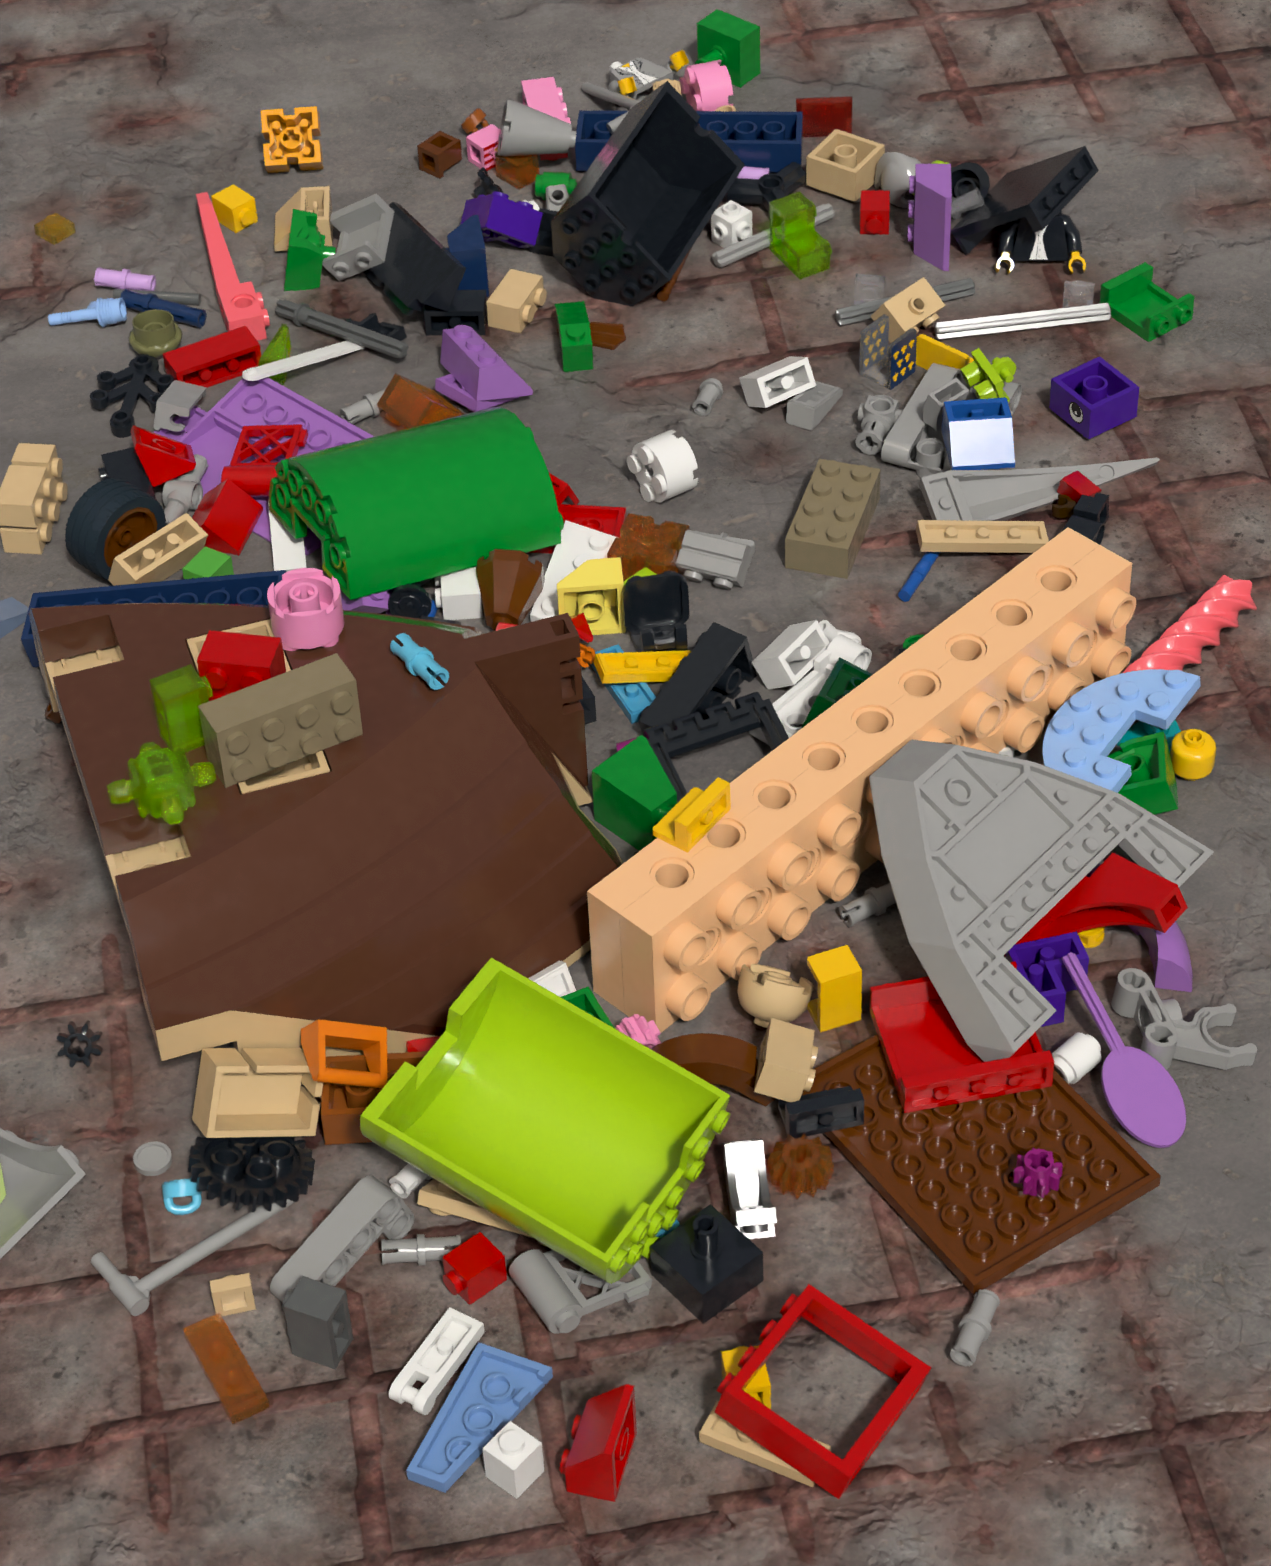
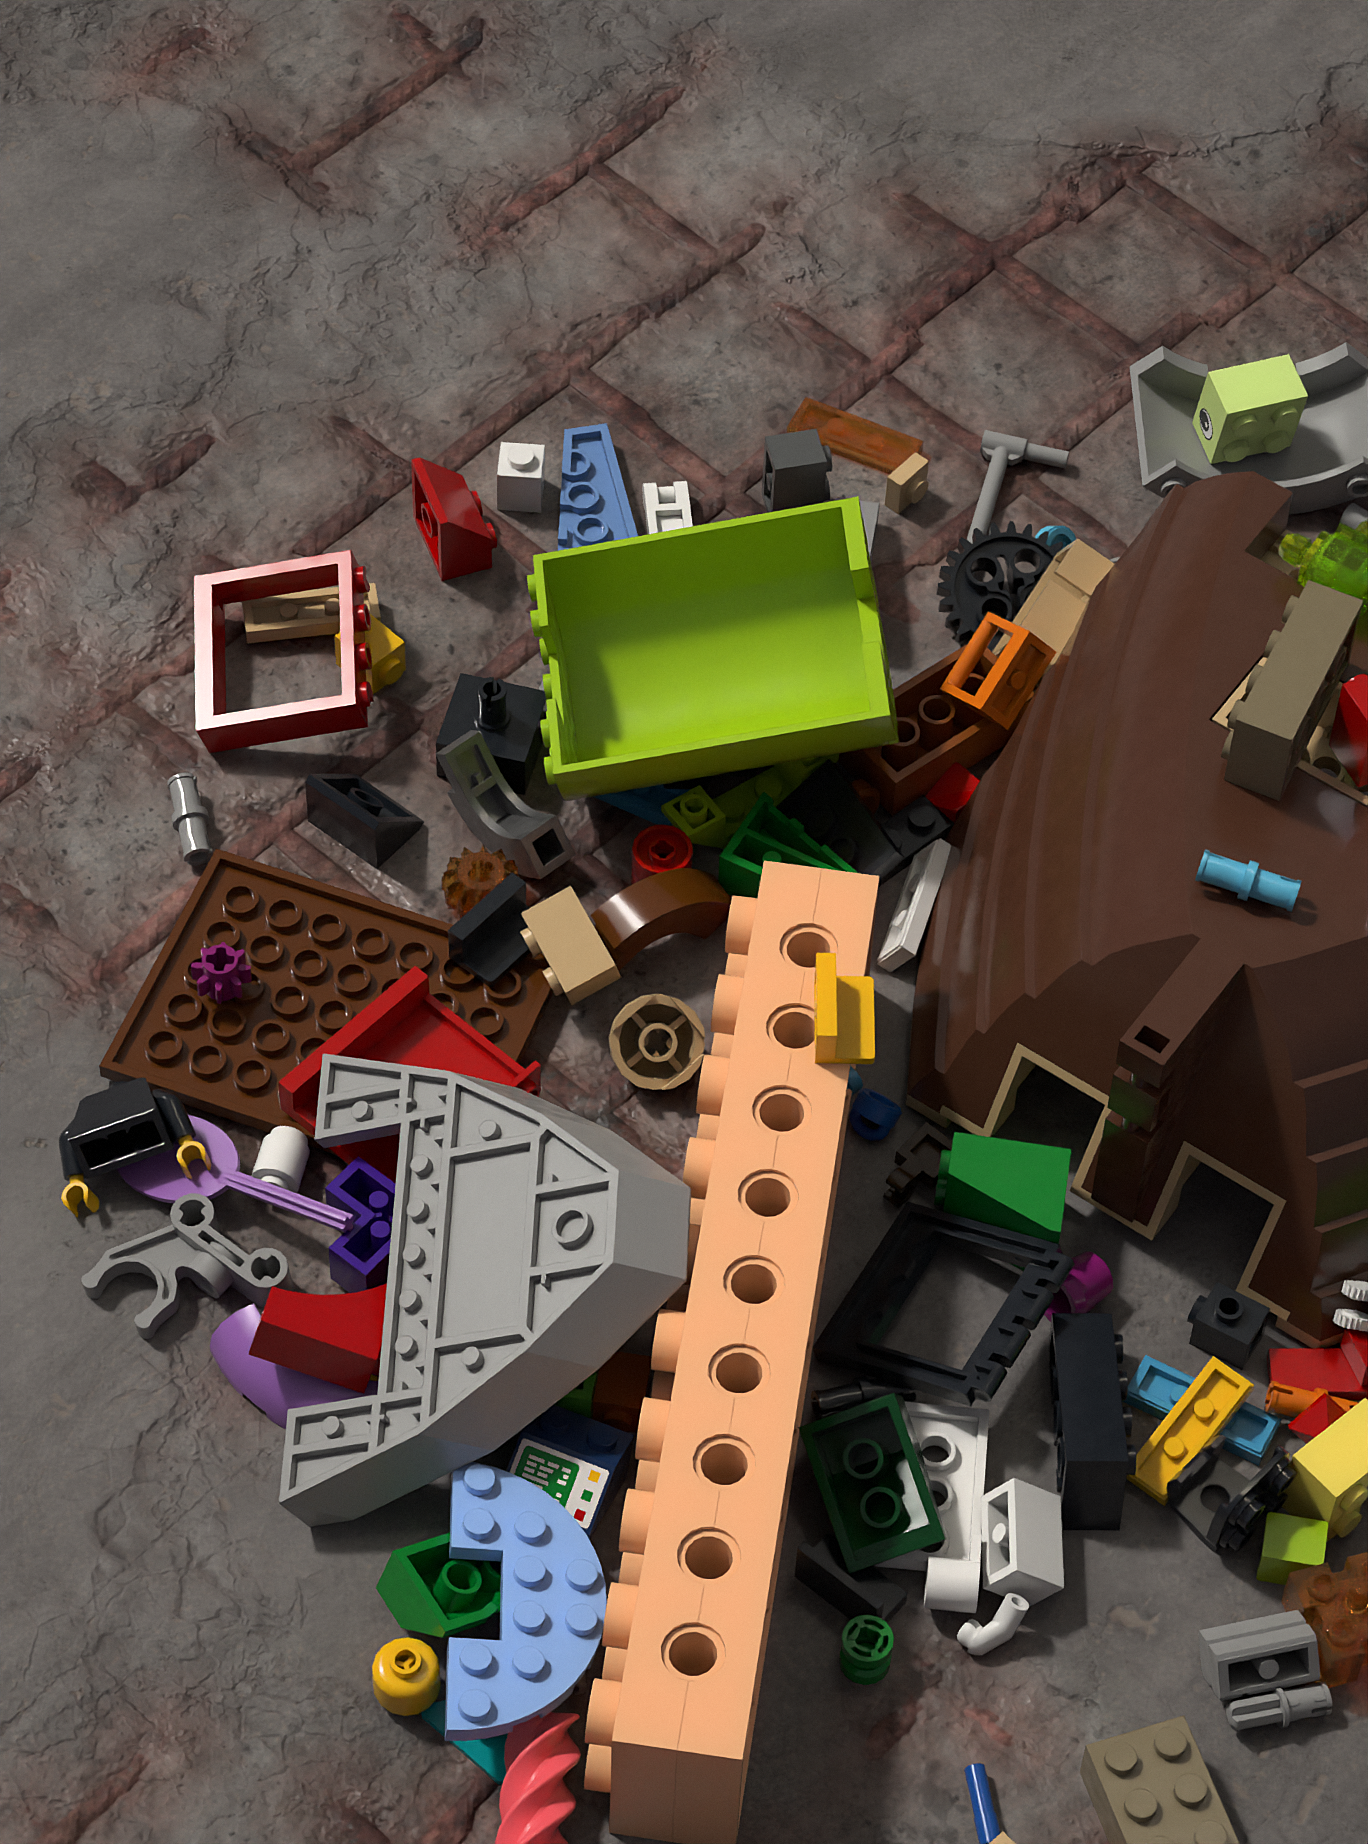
camera: 140 degrees right, 10 degrees up
(838, 988) = (583, 1070): yellow panel -> none
(846, 1258) = (359, 816): none -> black slope
(1173, 1111) = (121, 1129): none -> black torso

